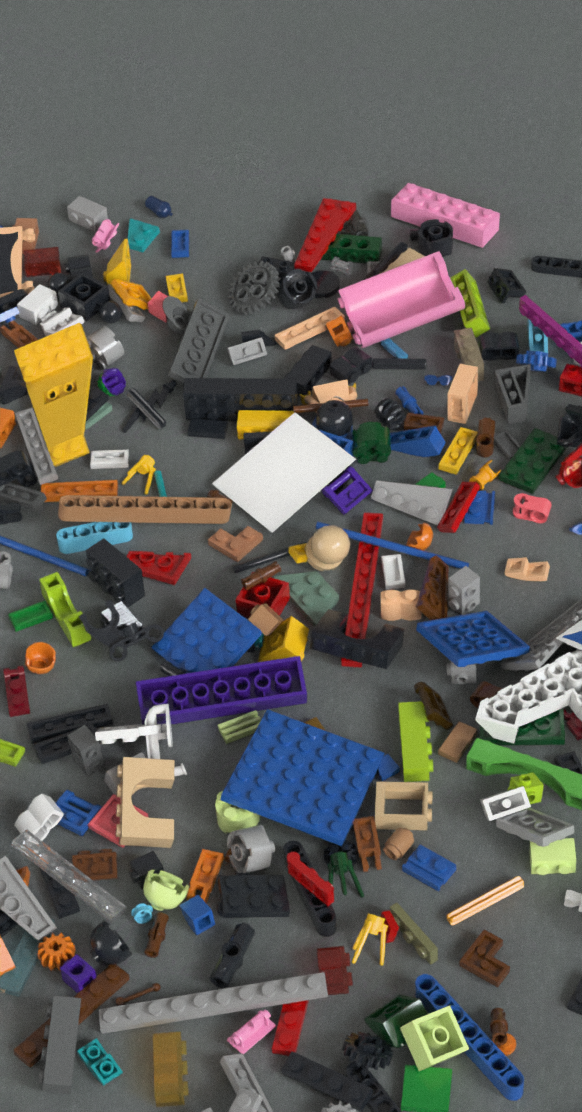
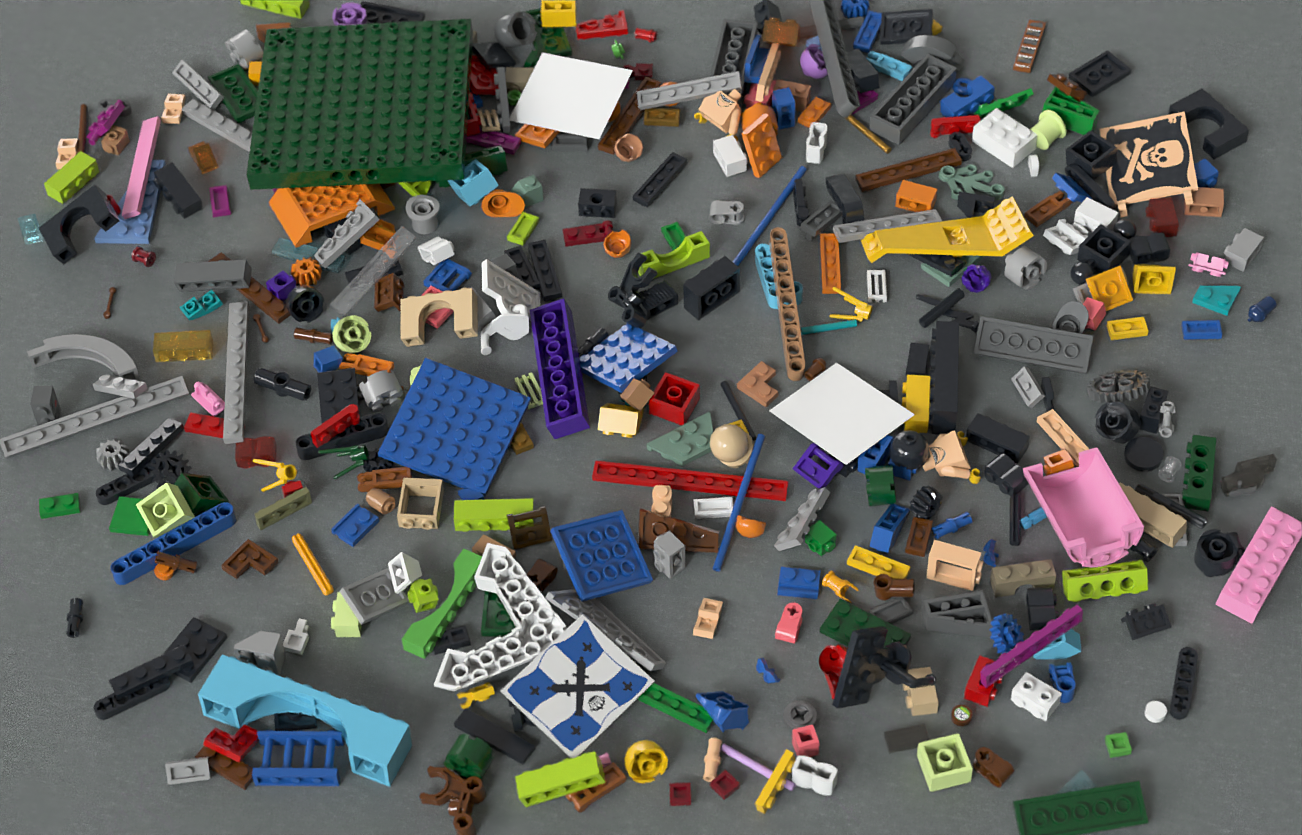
camera: 90 degrees right, 5 degrees up
(141, 866) = (378, 326): black brick -> none
(163, 568) = (729, 324): red wing -> none
(261, 575) = (687, 387): reddish brown pin -> none
(314, 407) = (932, 450): reddish brown bar -> none
(325, 226) = (1242, 452): red wing -> none
(376, 651) = (597, 484): black arch -> none
(458, 507) = (789, 558): red plate -> none

